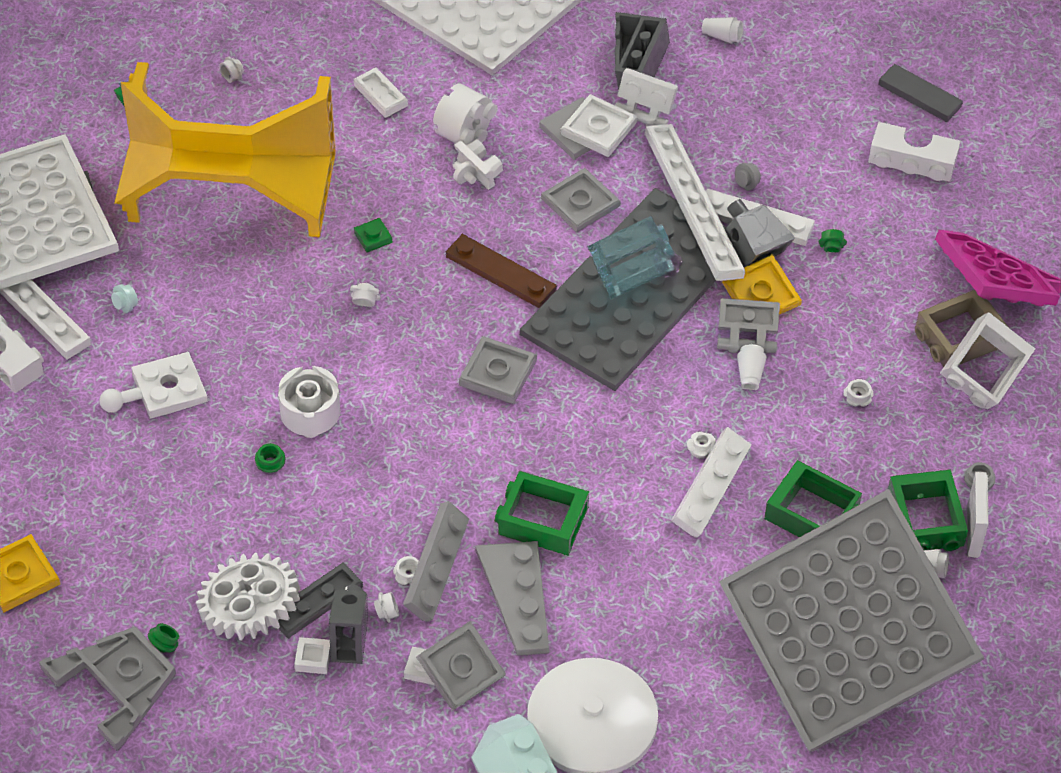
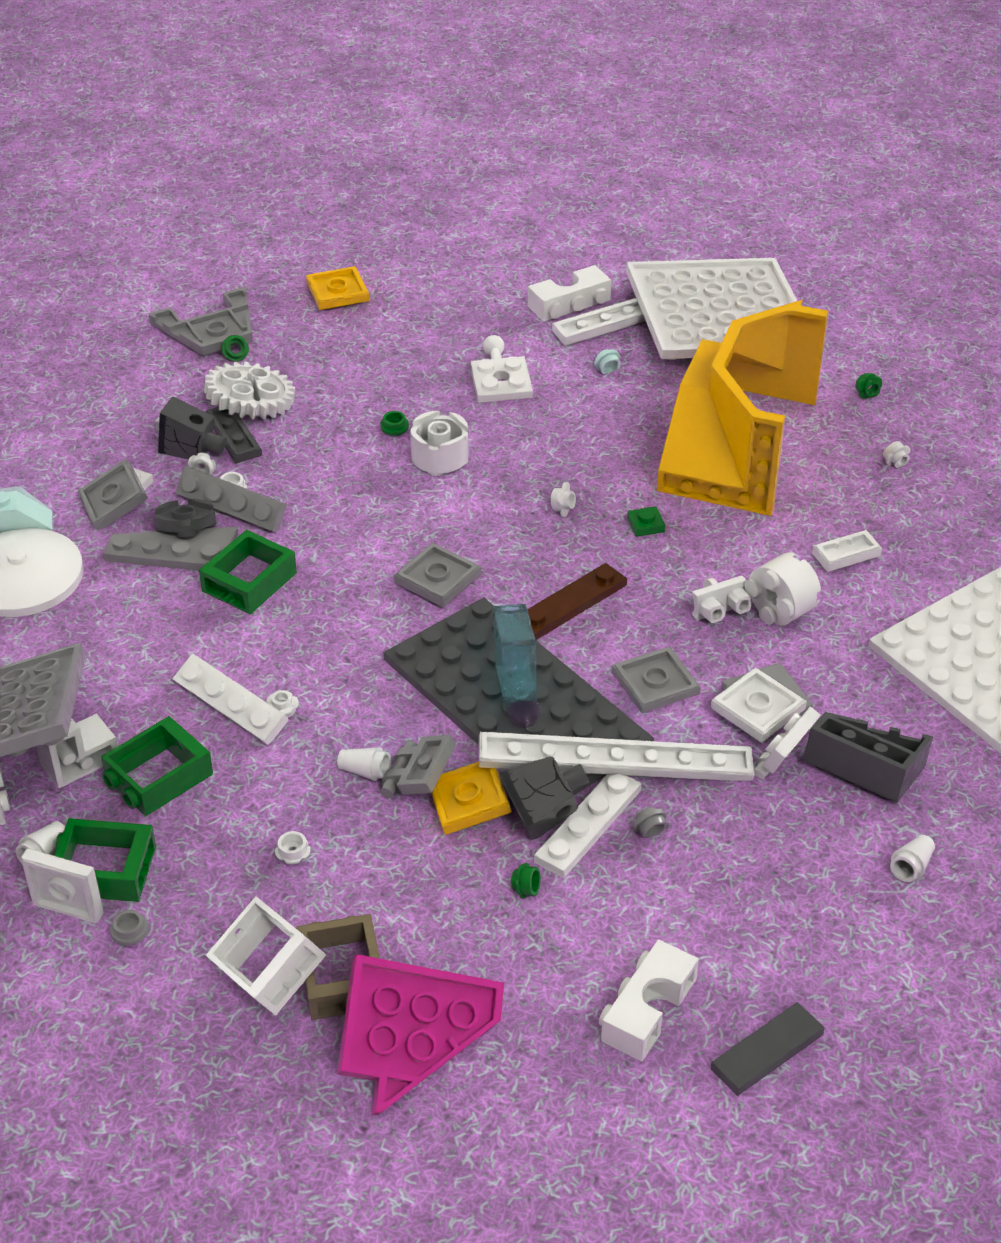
camera: 105 degrees right, 10 degrees down
(491, 600) = (184, 518): none -> dark grey plate

